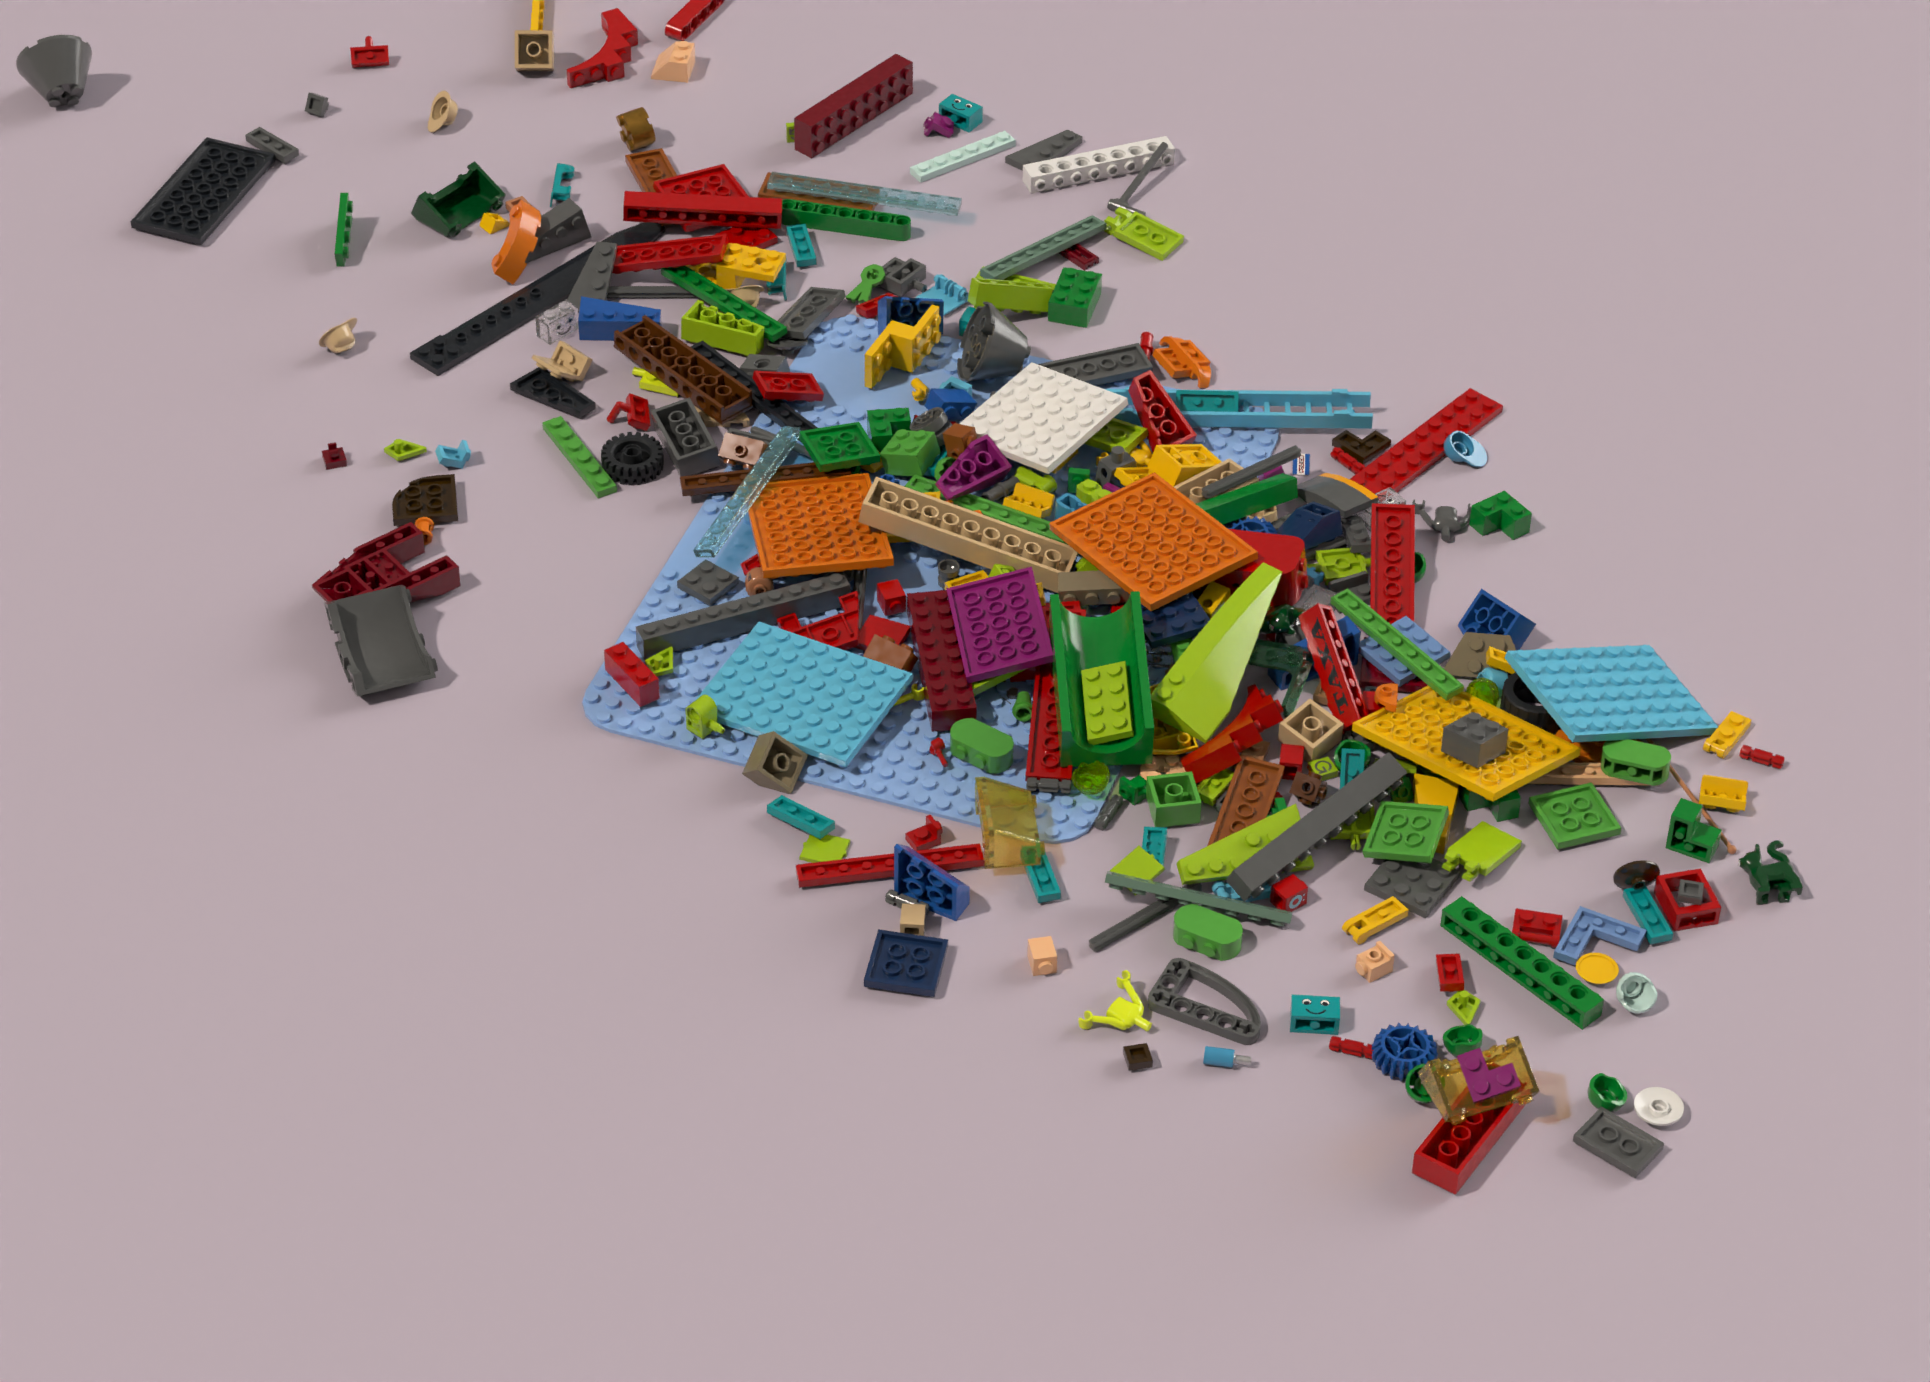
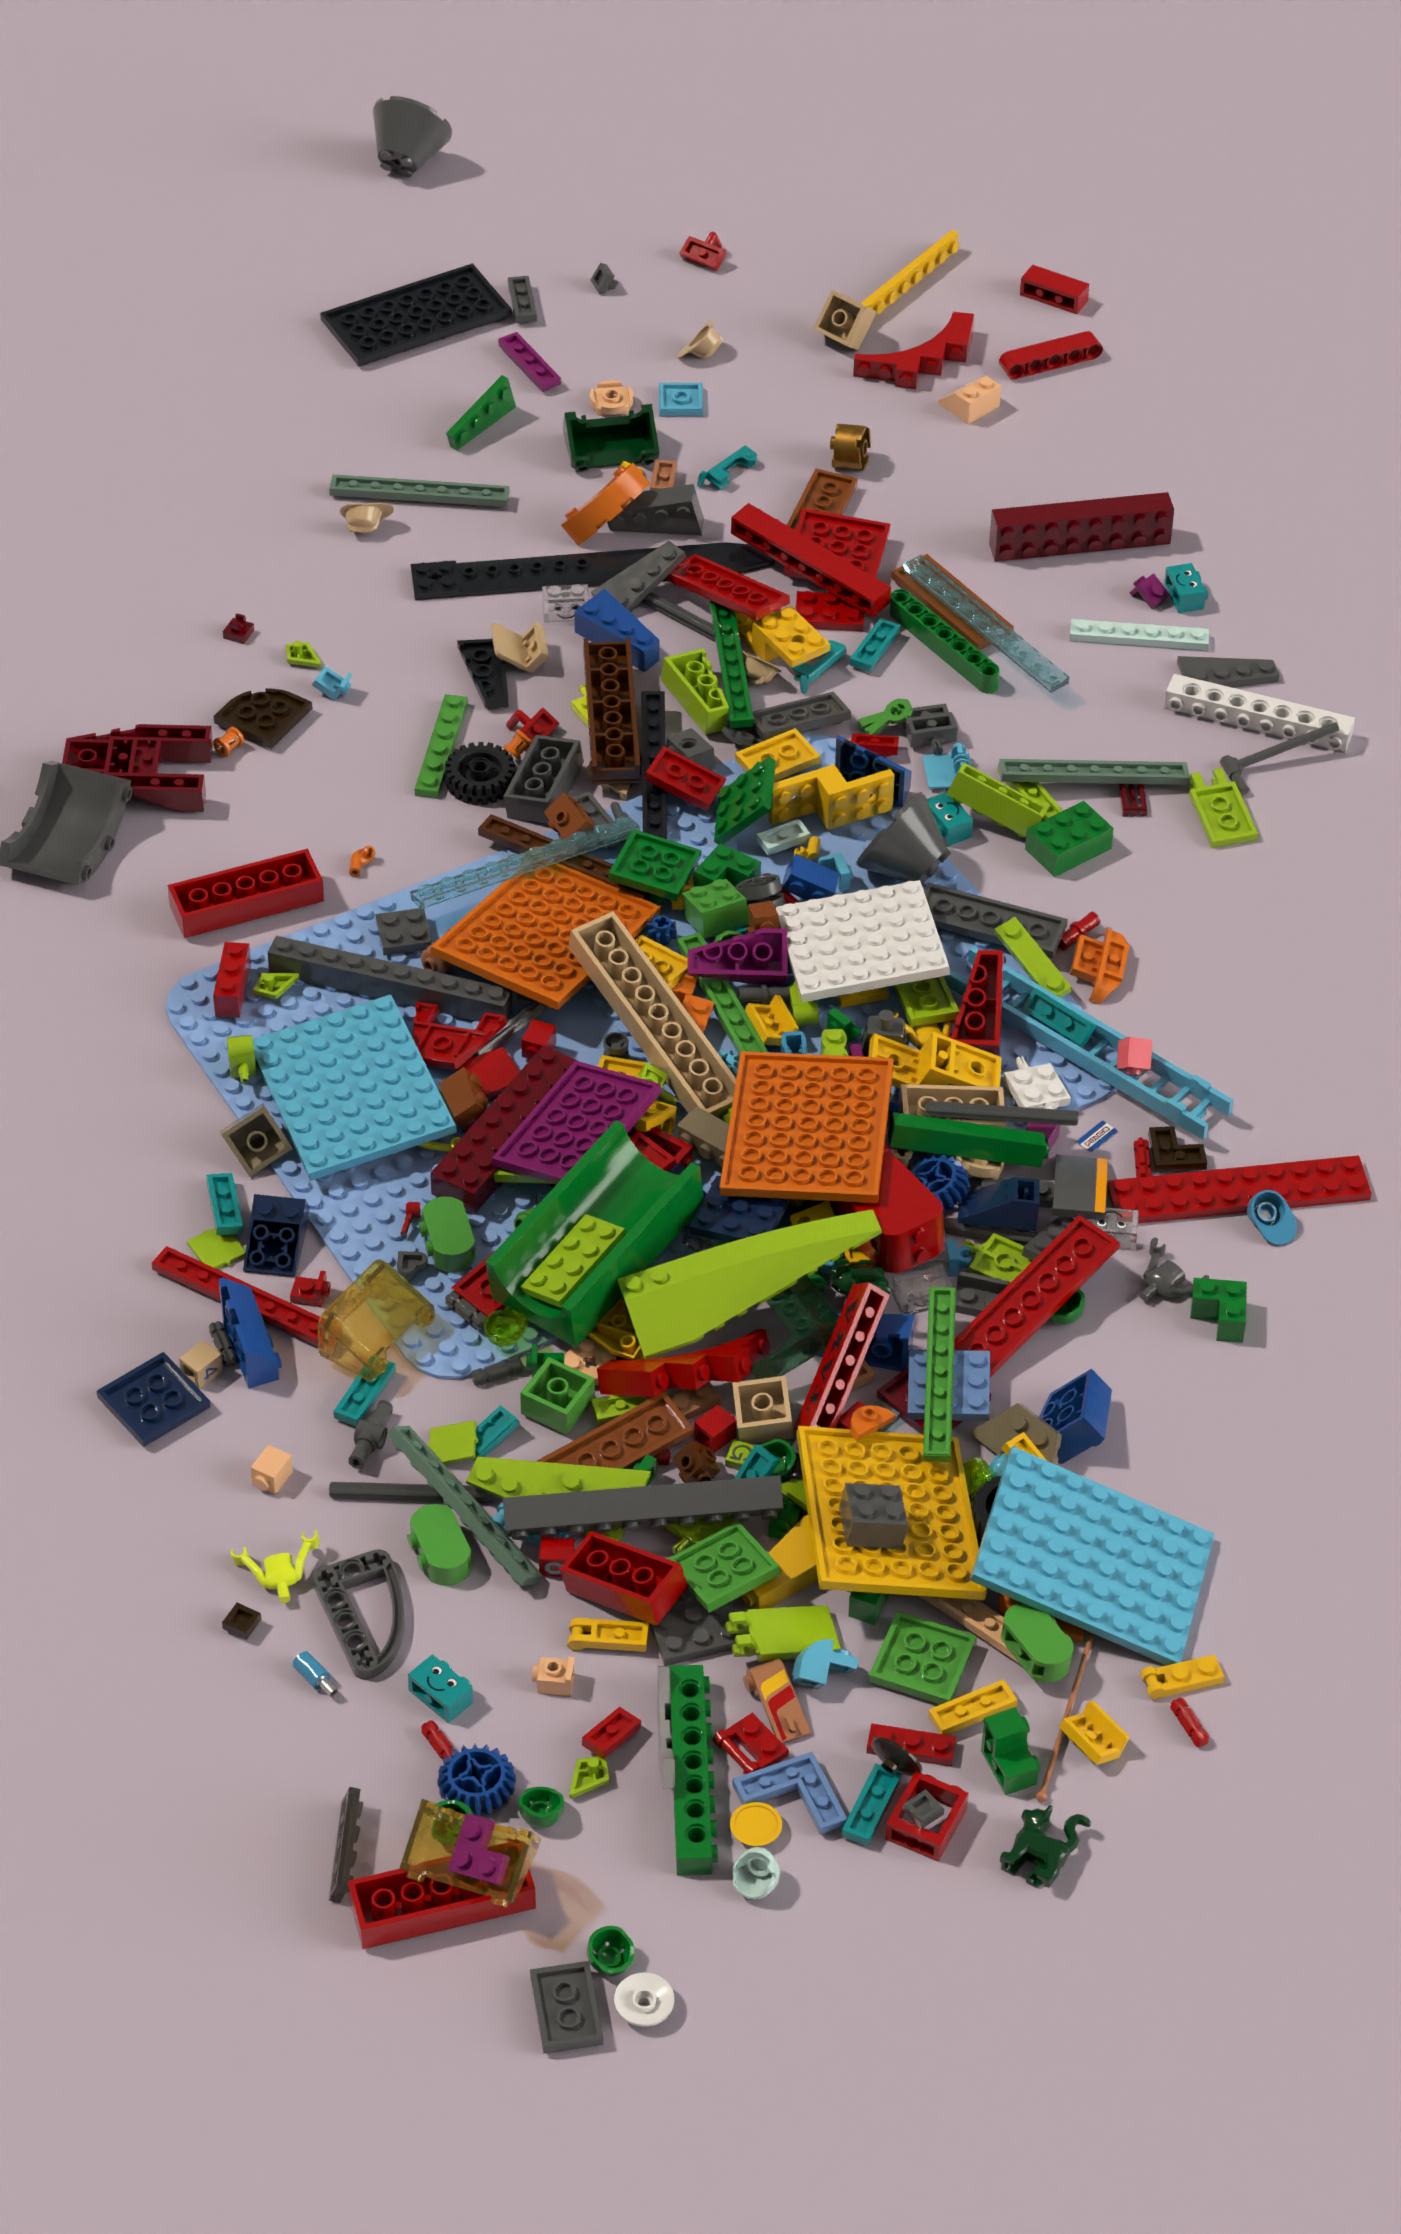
camera: 40 degrees right, 5 degrees up
(329, 182) = (529, 361): none -> magenta plate
(354, 303) = (419, 490): none -> sand green plate
(420, 179) = (619, 404): none -> light nougat plate
(466, 154) = (680, 399): none -> medium azure tile
(567, 617) = (246, 893): none -> red brick
(614, 555) = (359, 859): none -> orange arm
(642, 423) = (518, 744): none -> orange bush
(828, 344) = (788, 749): none -> yellow plate
(851, 376) = (744, 800): none -> green plate
(860, 814) = (276, 1234): none -> dark blue slope
(893, 389) = (783, 837): none -> light aqua plate
(968, 778) = (411, 1263): none -> dark grey tile
(1078, 896) = (370, 1434): none -> dark grey pin
(1127, 370) = (1032, 957): none -> lime plate
(1238, 449) = (1036, 1086): none -> white plate
(1285, 396) = (1134, 1055): none -> coral brick
(1354, 875) = (623, 1578): none -> red brick
(1372, 1141) = (346, 1837): none -> clear smoke plate
(1506, 965) = (666, 1756): none -> light grey tile
(1509, 881) = (778, 1699): none -> nougat door
(1523, 853) = (815, 1660): none -> medium azure brick
(1604, 874) = (924, 1745): none -> red plate
(1636, 825) = (972, 1707): none -> yellow plate

